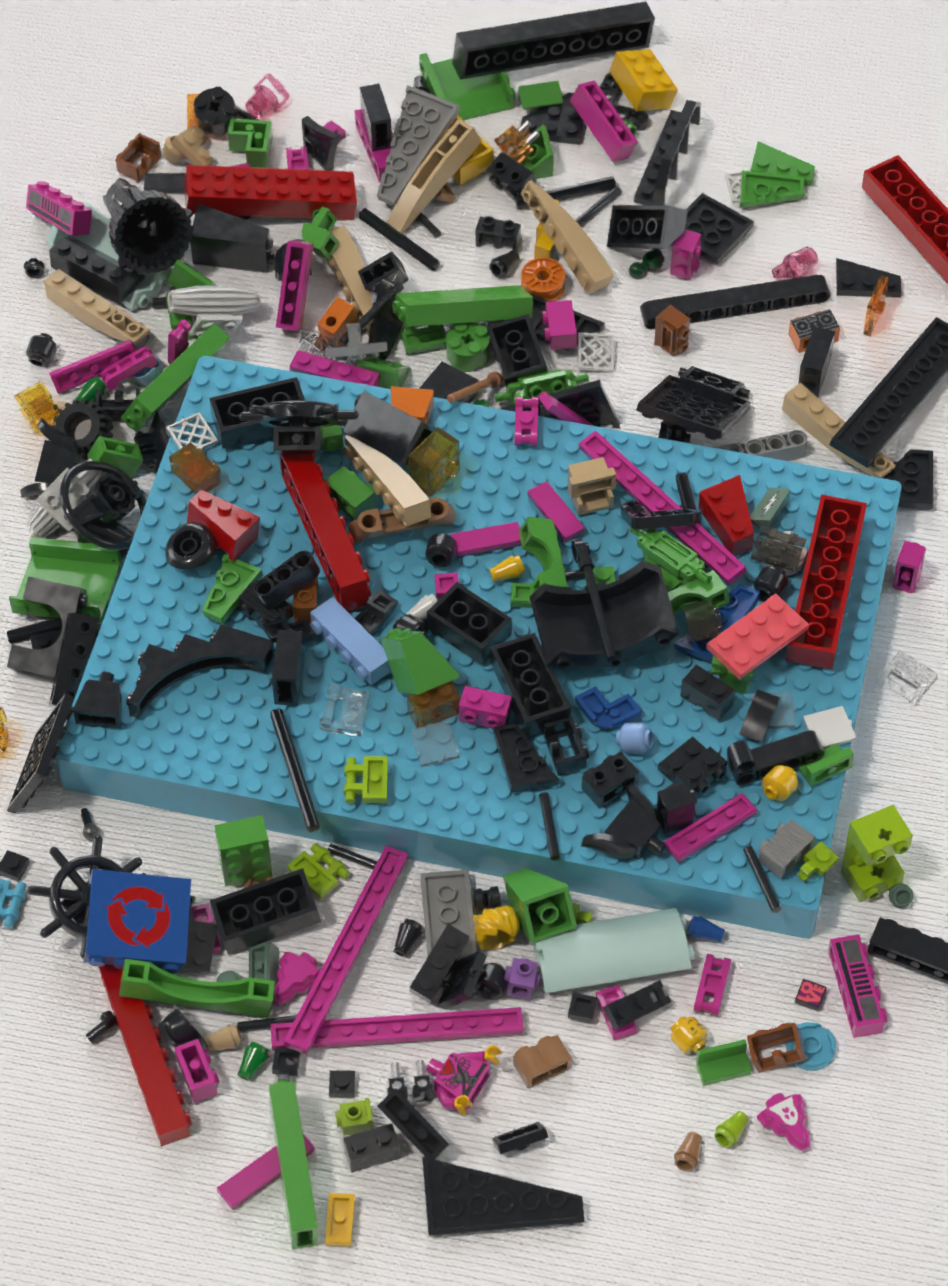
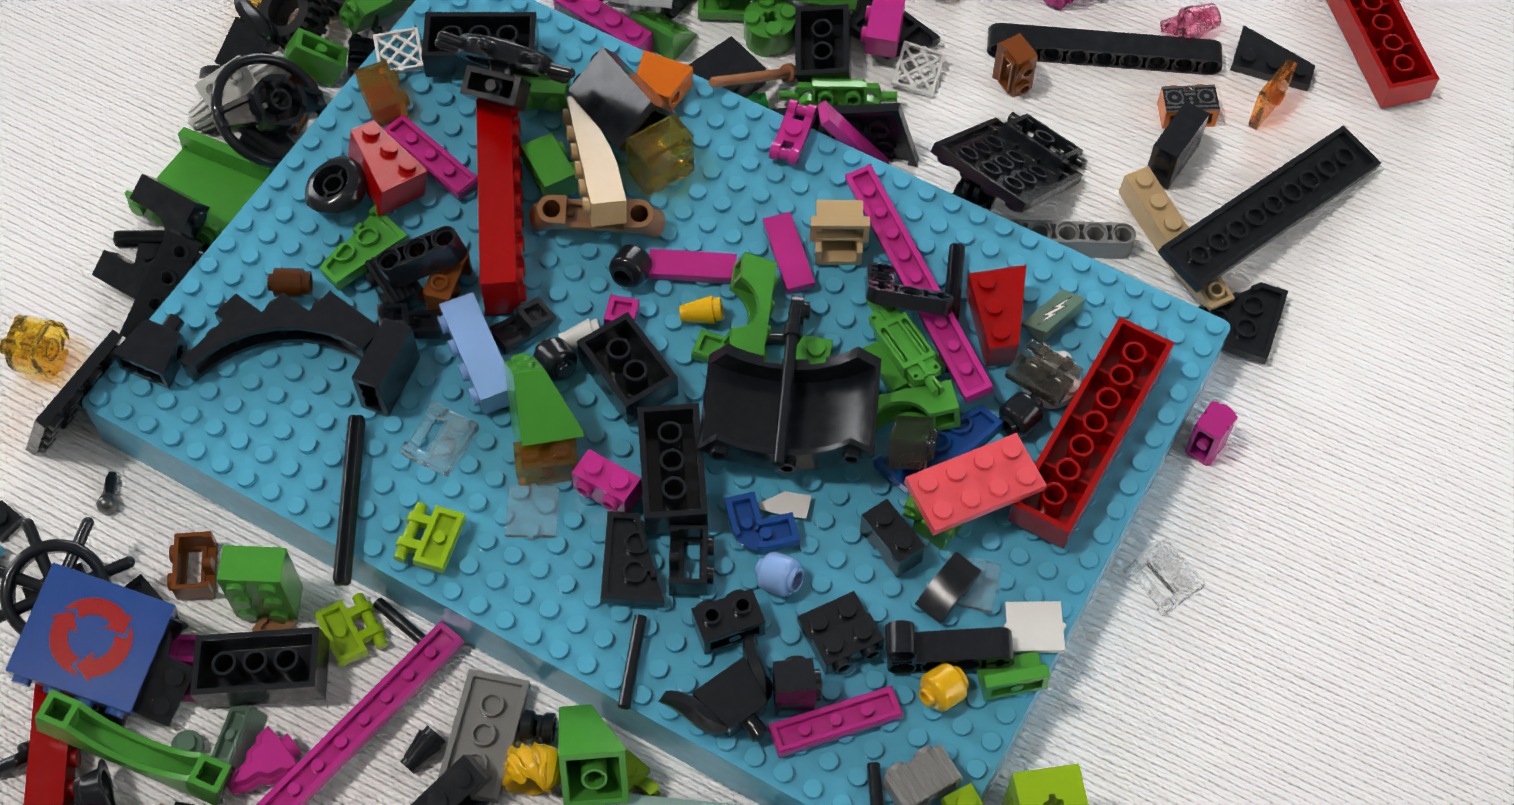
camera: 15 degrees right, 5 degrees up
(180, 840) = (179, 554): none -> dark orange window
(183, 625) = (291, 281): none -> reddish brown brick
(270, 515) = (439, 163): none -> dark pink tile
(620, 689) = (786, 503): none -> white sticker

